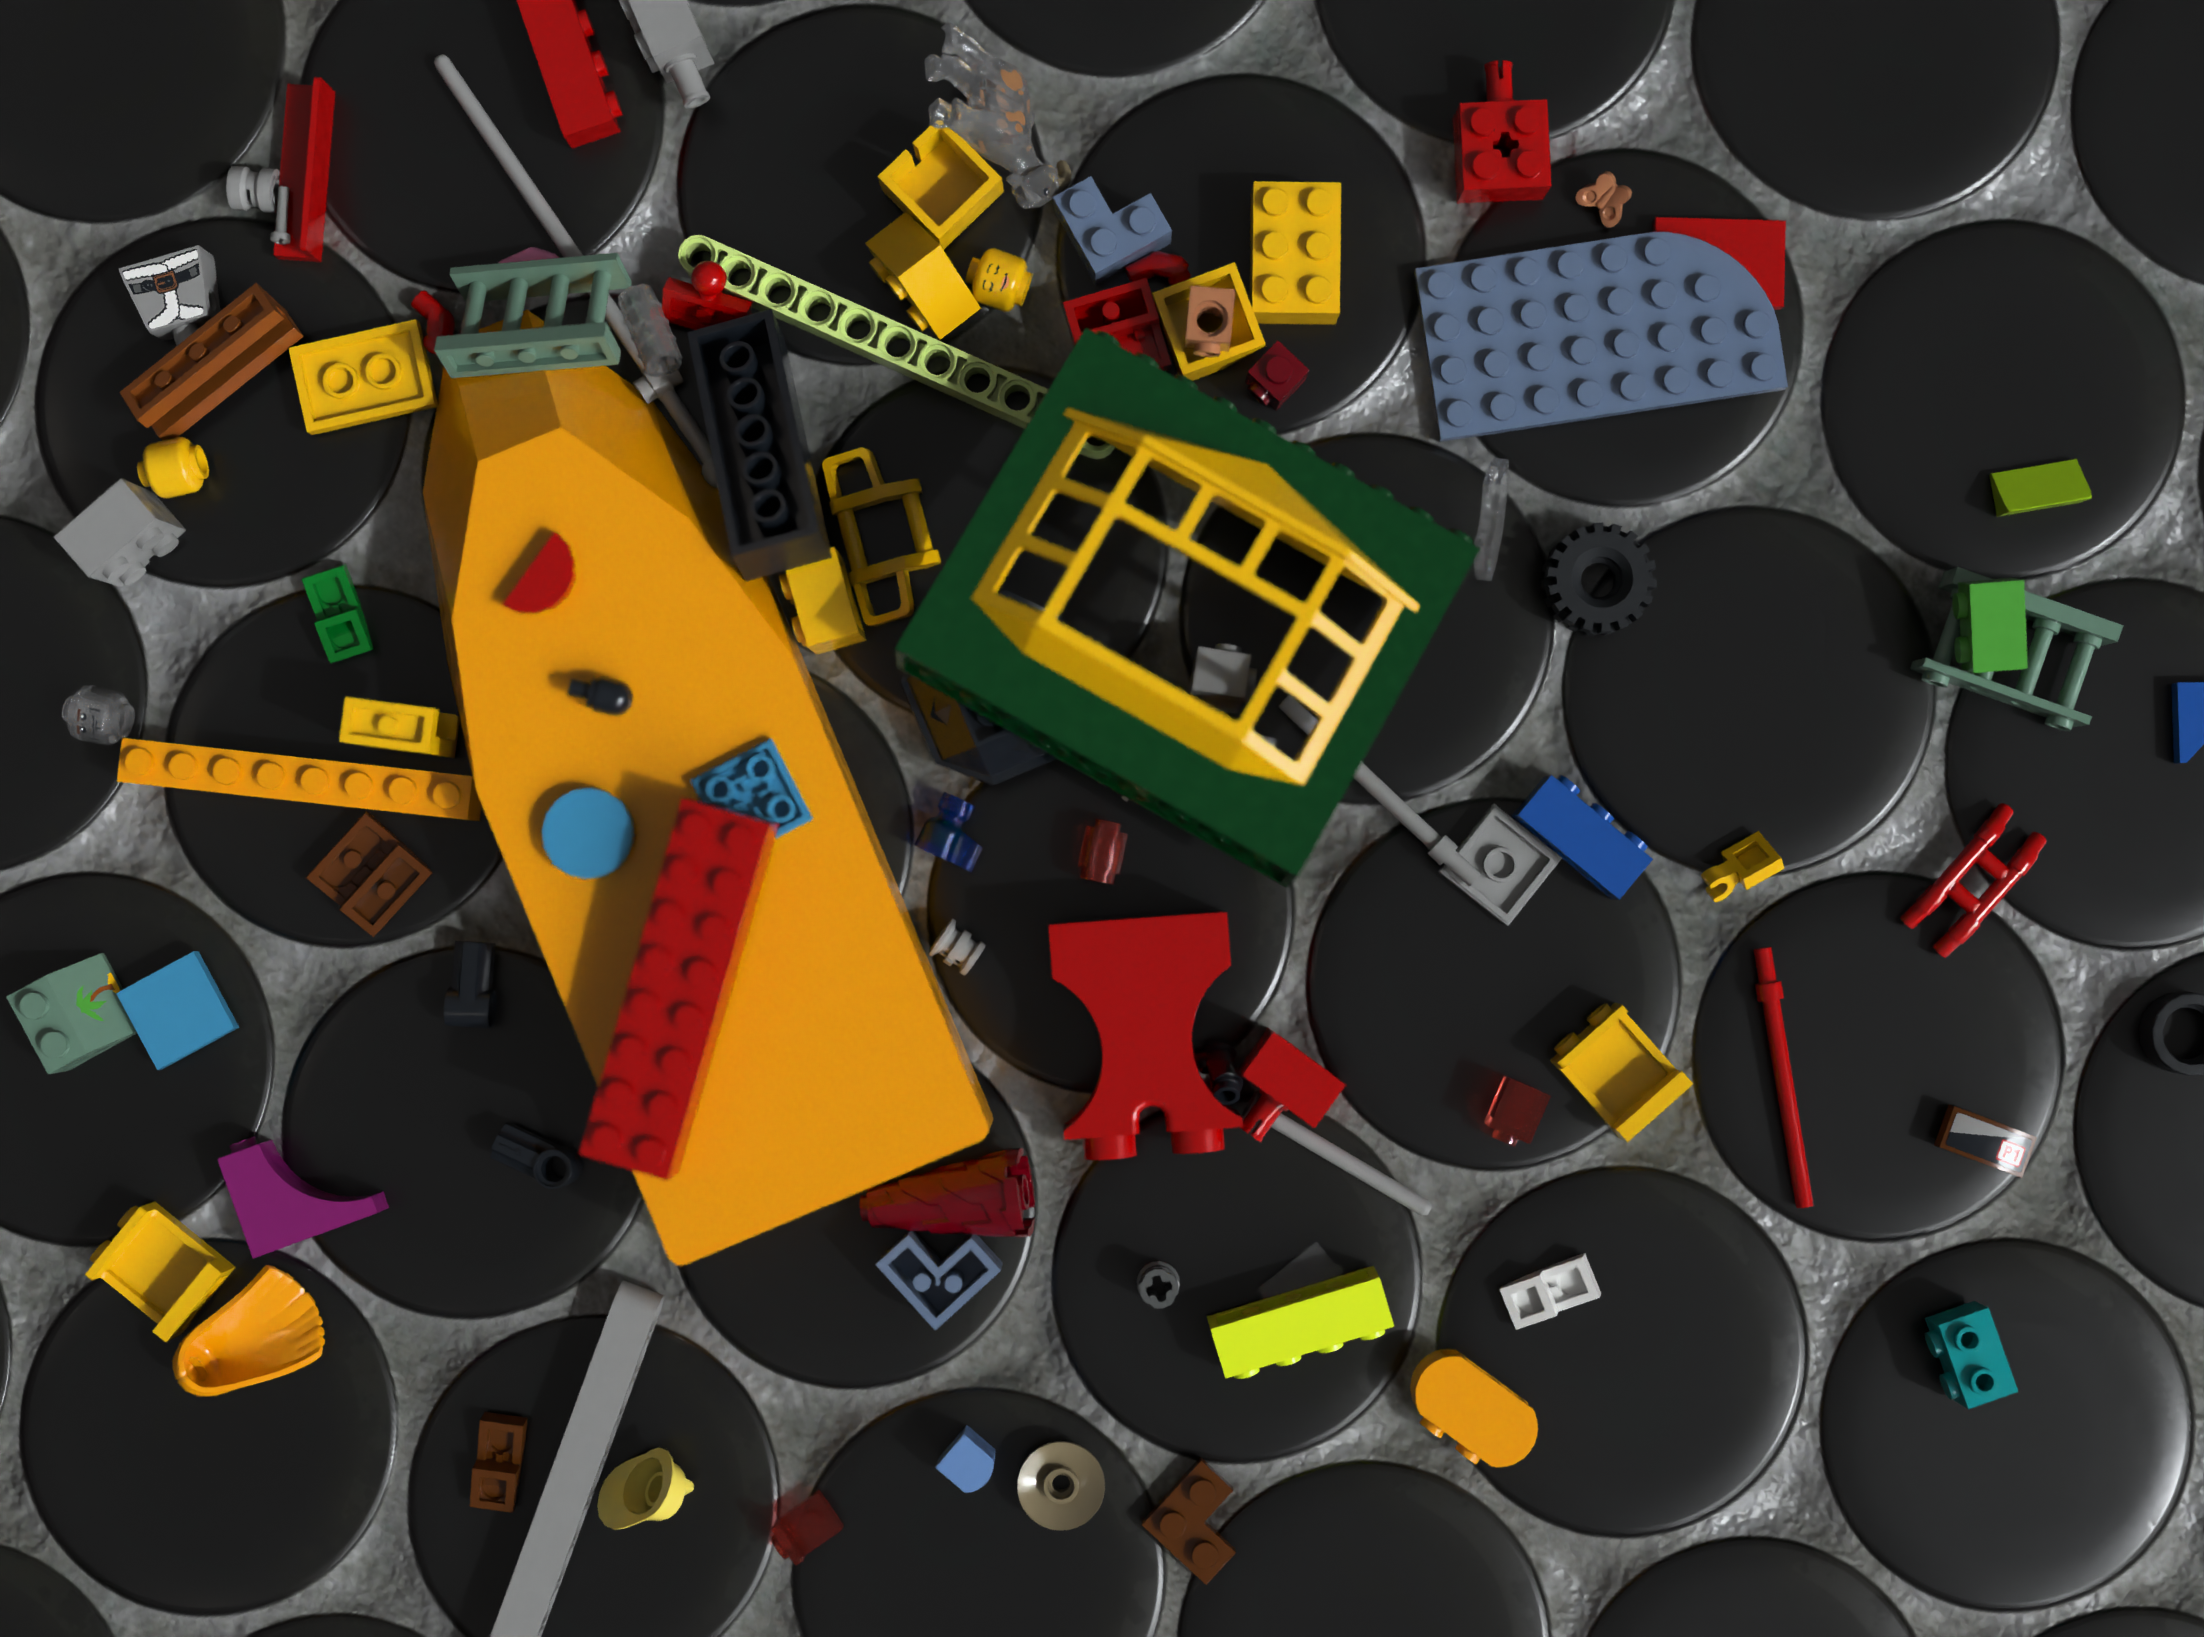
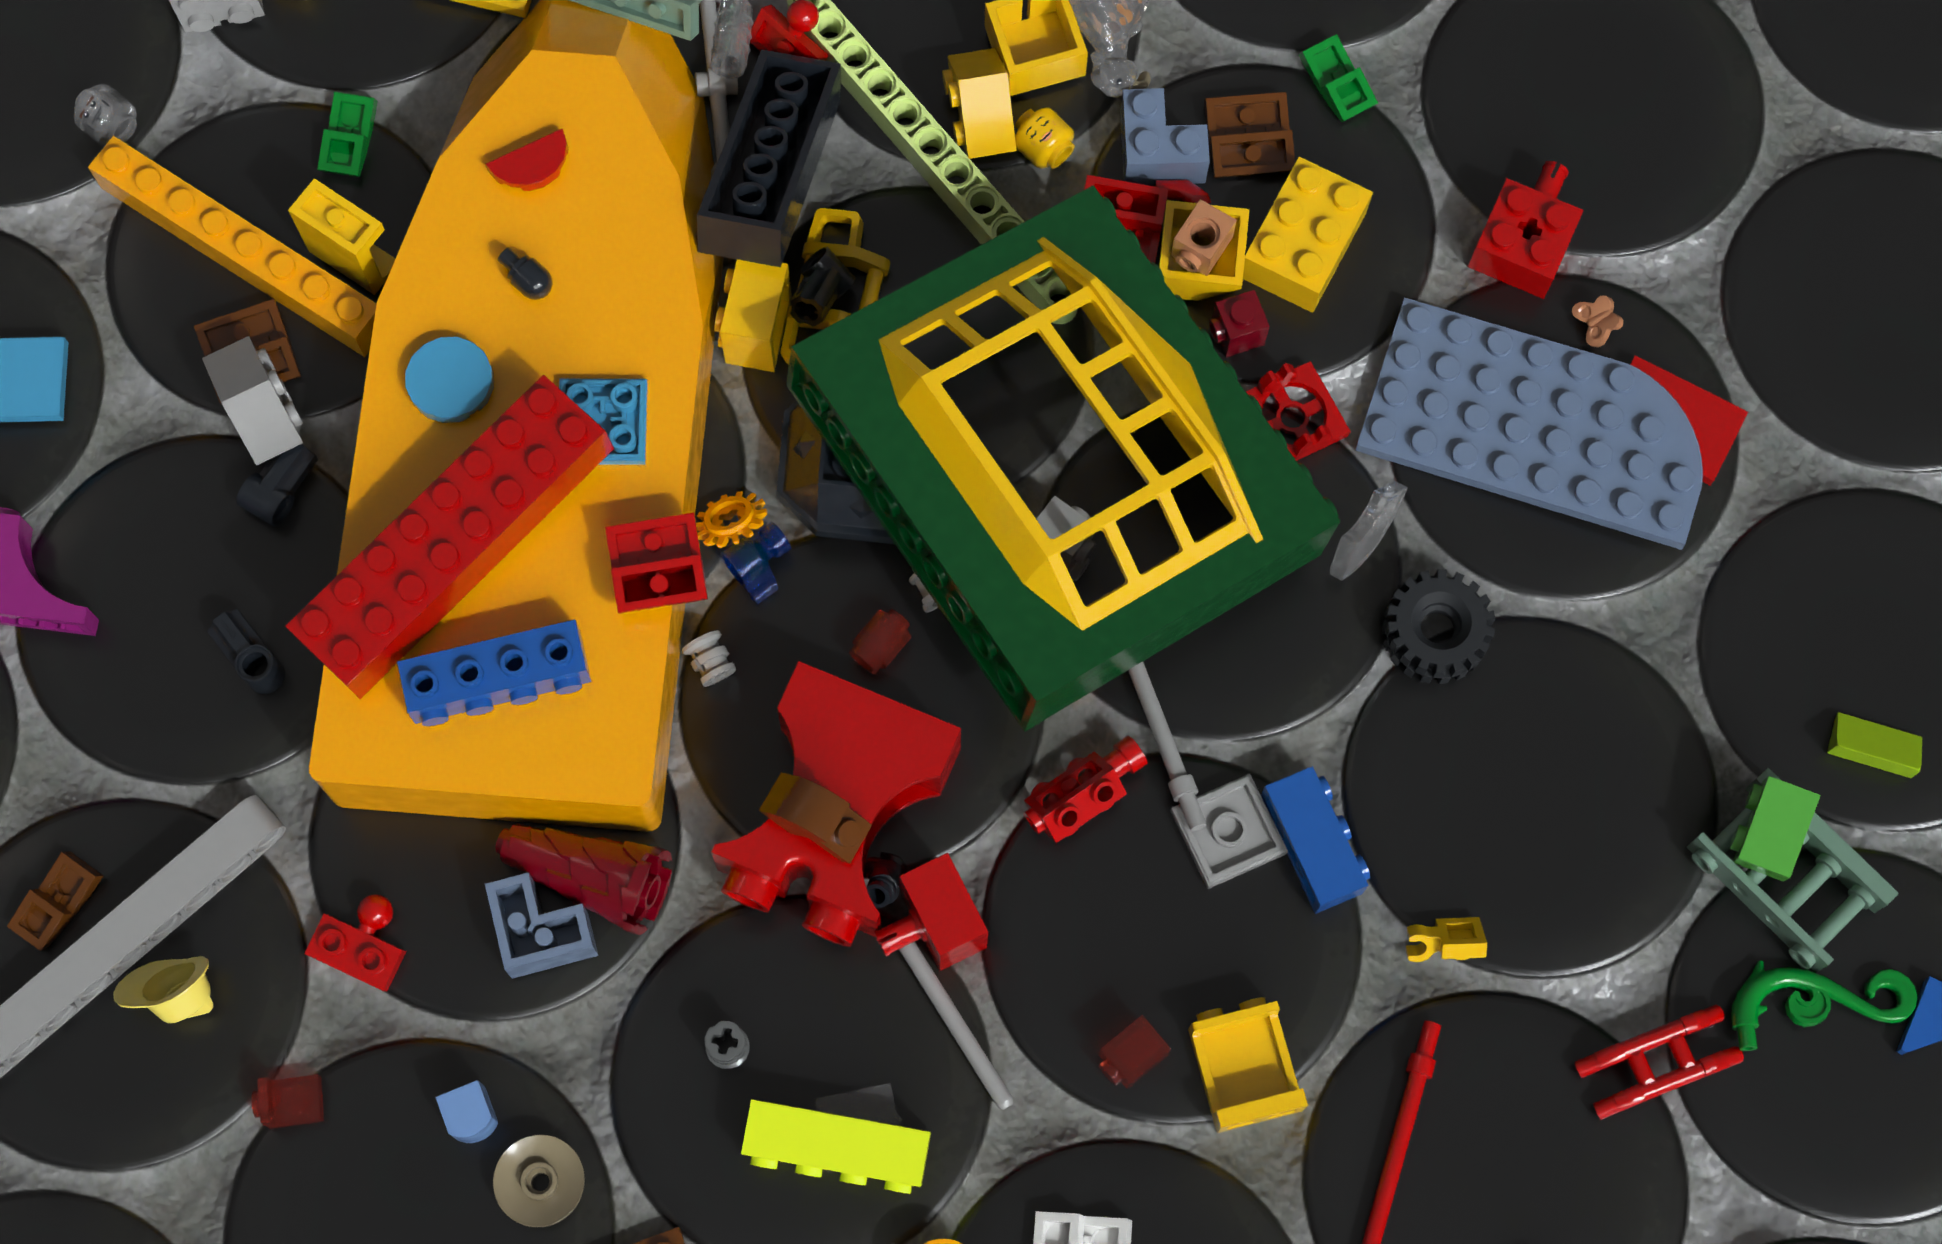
camera: 25 degrees right, 15 degrees down
(409, 928) = (254, 399): none -> light grey piece
(788, 1090) = (494, 673): none -> blue brick
(788, 1367) = (357, 949): none -> red plate
(871, 538) = (822, 284): none -> black piece
(881, 917) = (656, 563): none -> red brick
(895, 799) = (747, 510): none -> light orange gear
(1143, 1067) = (816, 814): none -> reddish brown brick
(1190, 174) = (1249, 134): none -> reddish brown slope
(1245, 72) = (1337, 79): none -> green slope
(1354, 899) = (1079, 799): none -> red brick
(1360, 396) = (1303, 377): none -> red piece
(2085, 741) = (1821, 989): none -> green plant

